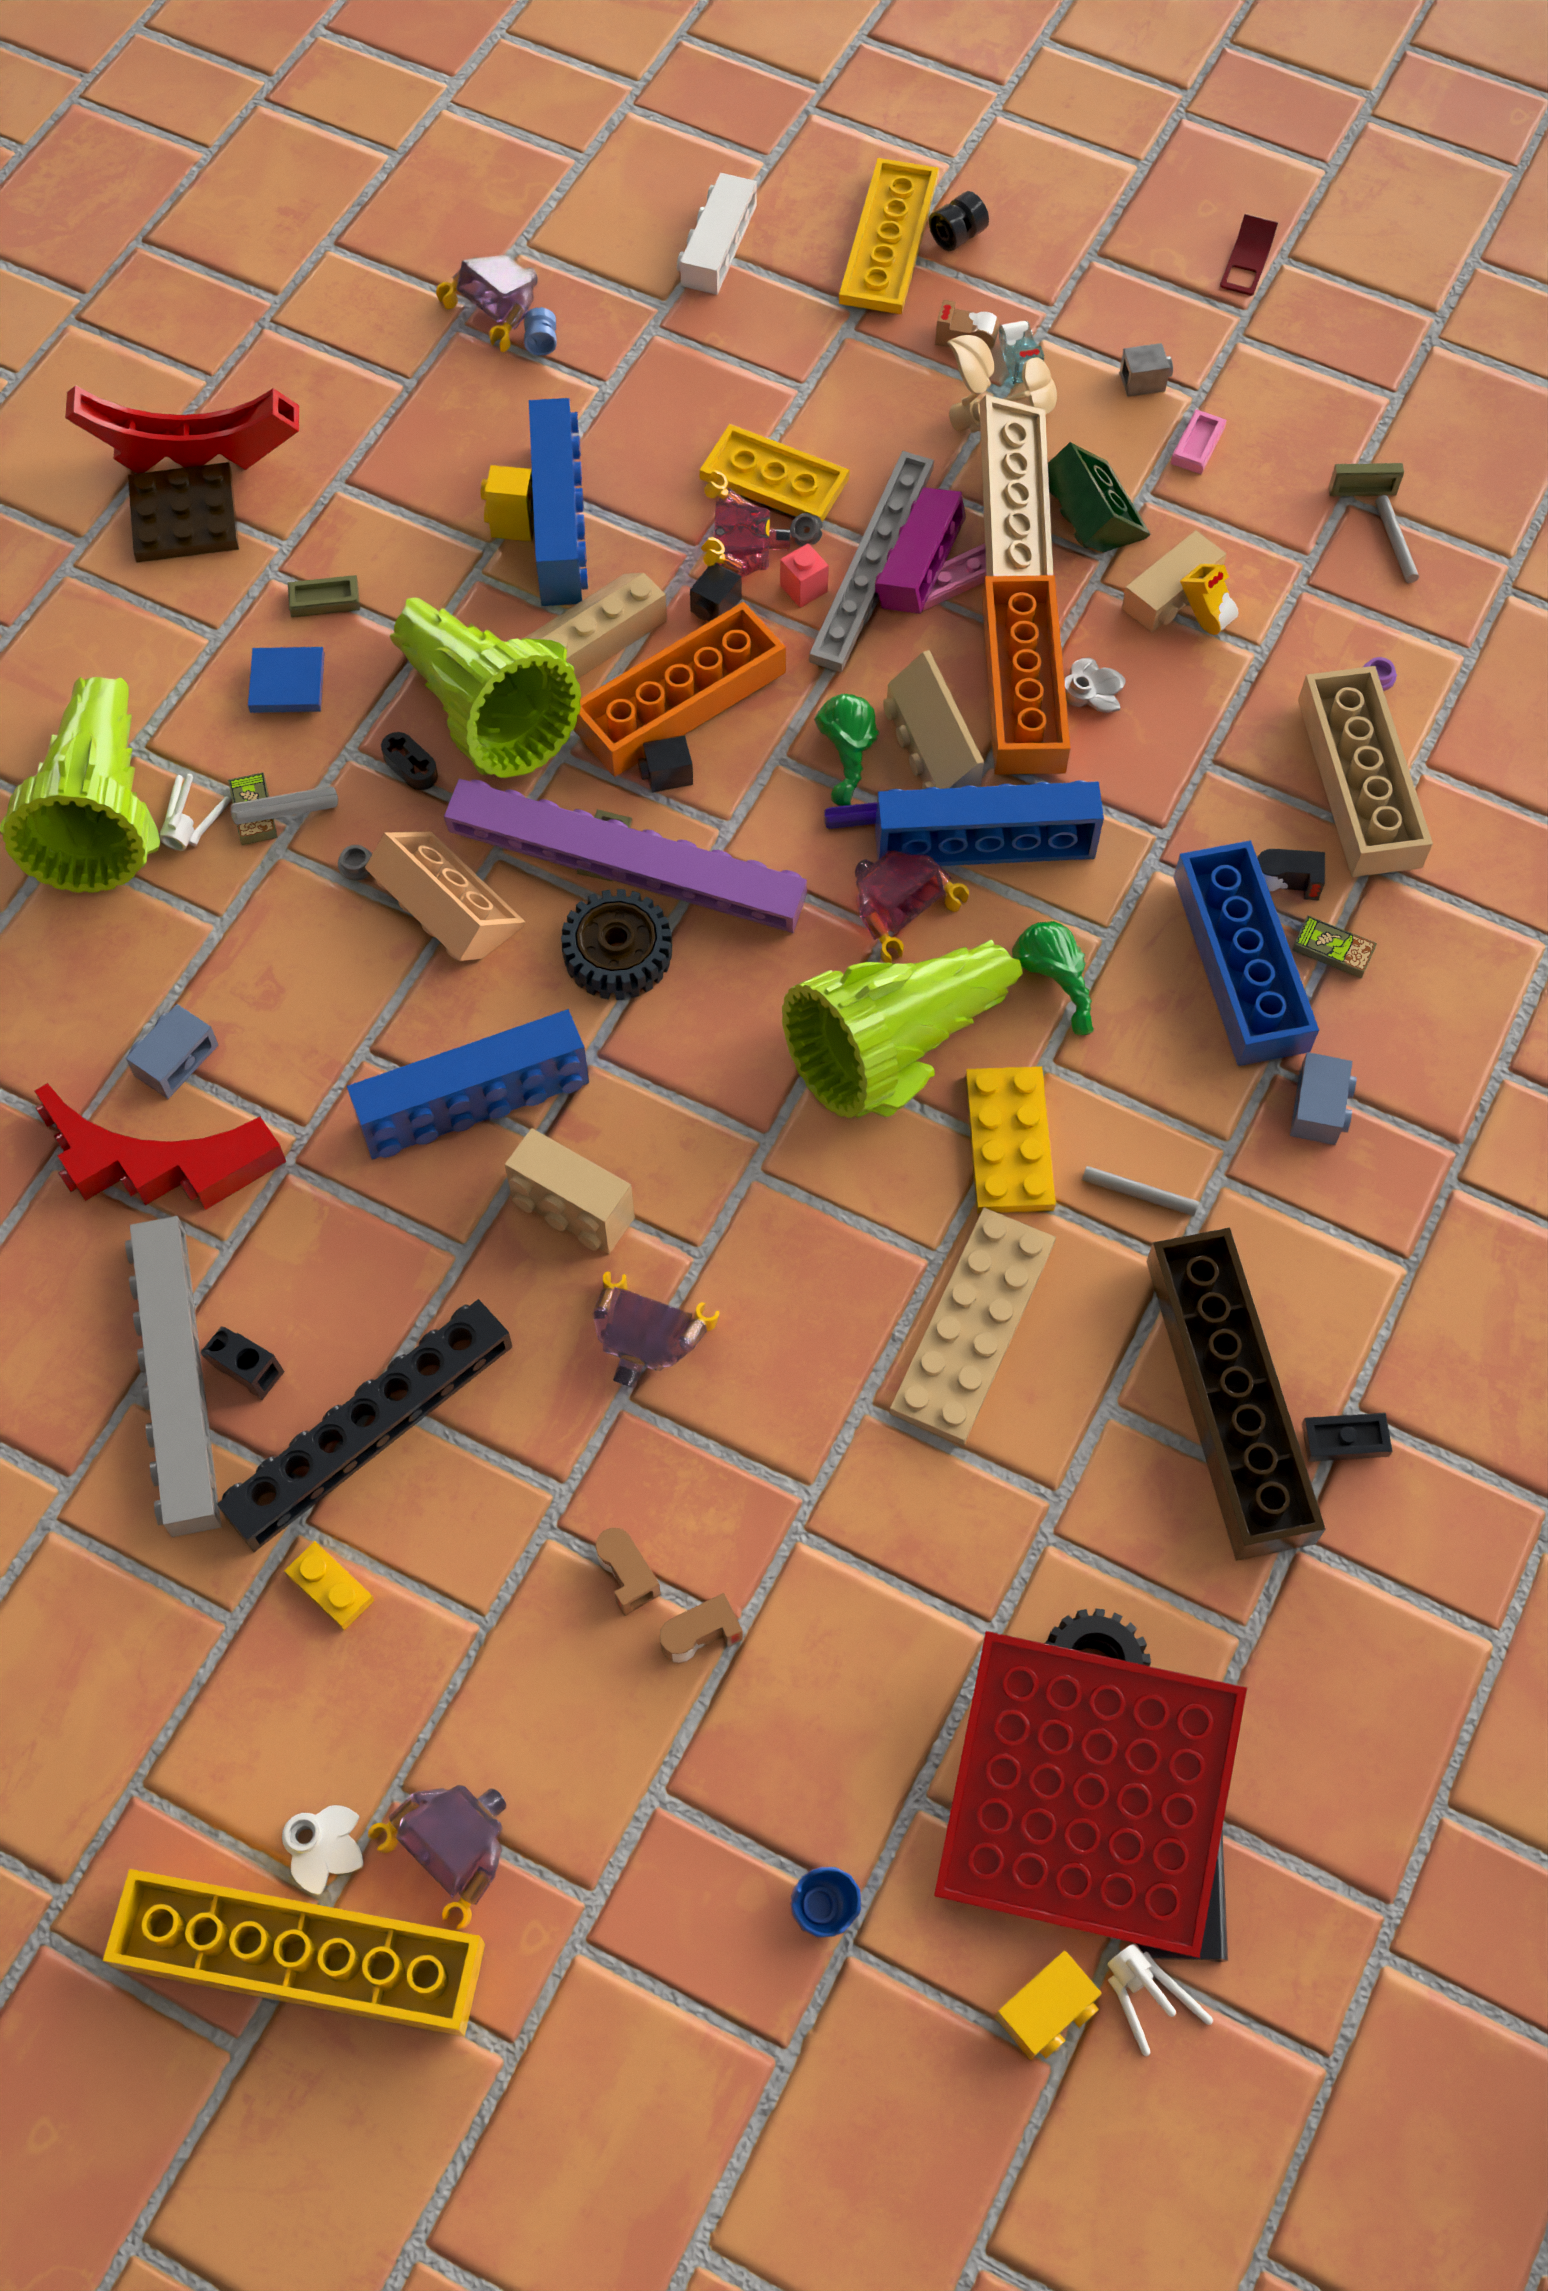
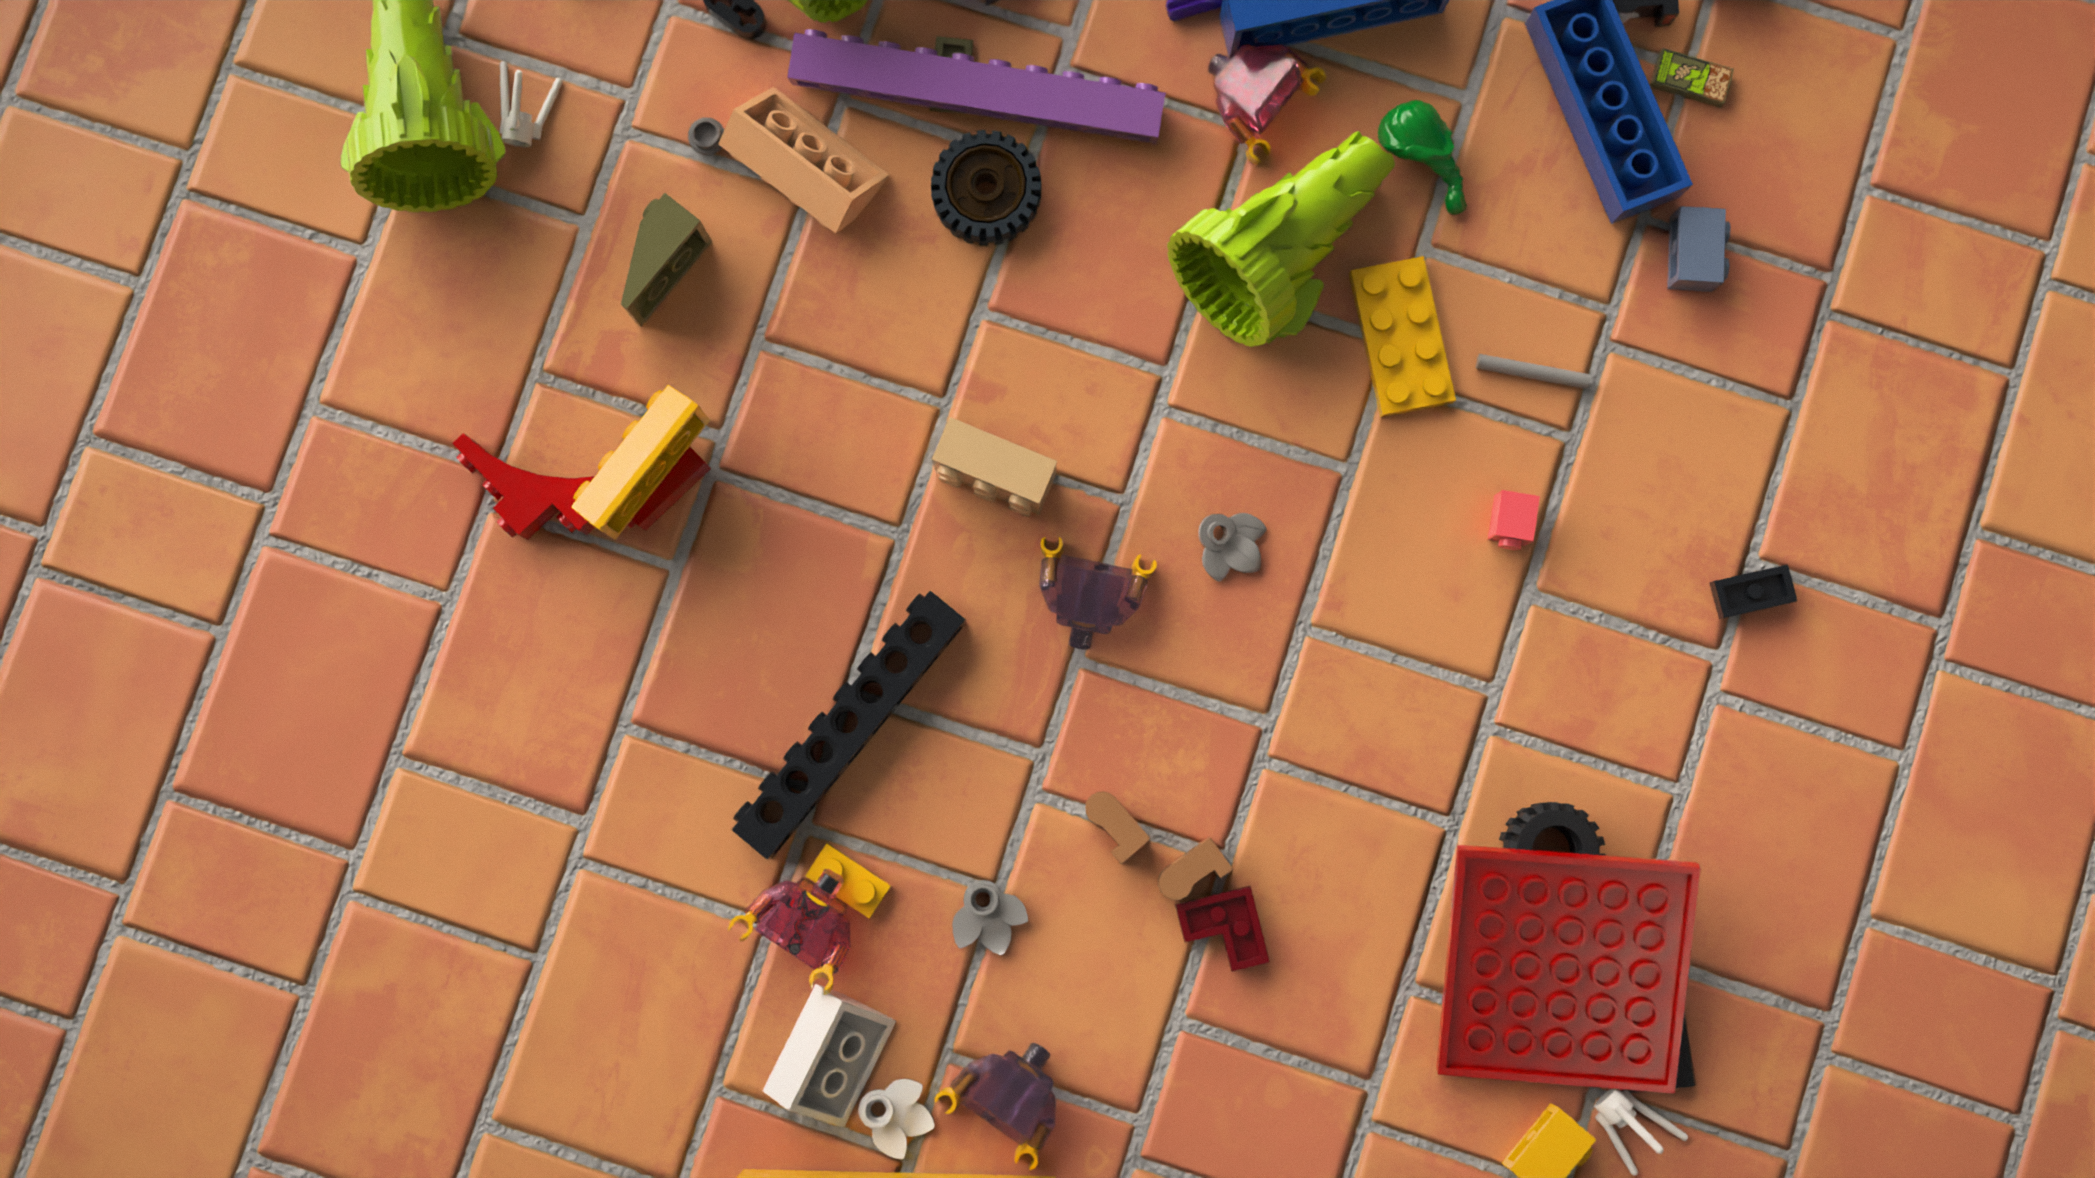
camera: 10 degrees left, 20 degrees up
(171, 1051) = (573, 373): sand blue brick -> none
(174, 1378) = (657, 705): light grey brick -> none
(215, 1129) = (640, 461): none -> yellow slope
(243, 1361) = (719, 682): black leg -> none
(247, 789) = (587, 89): tile -> none
(265, 1765) = (828, 1057): none -> white slope
(269, 1613) = (804, 922): none -> clear pink torso
(284, 805) = (620, 84): light grey axle -> none
(284, 955) = (663, 252): none -> olive slope
(469, 1084) = (876, 370): blue brick -> none
(469, 1653) = (988, 923): none -> light grey plate
(731, 1684) = (1233, 916): none -> dark red plate
(805, 1312) = (1236, 546): none -> light grey plate
(825, 1902) = (1345, 1096): blue hair -> none
(972, 1326) = (1394, 533): tan plate -> none
(1099, 1325) = (1513, 519): none -> coral brick
(1234, 1395) = (1647, 568): dark brown brick -> none

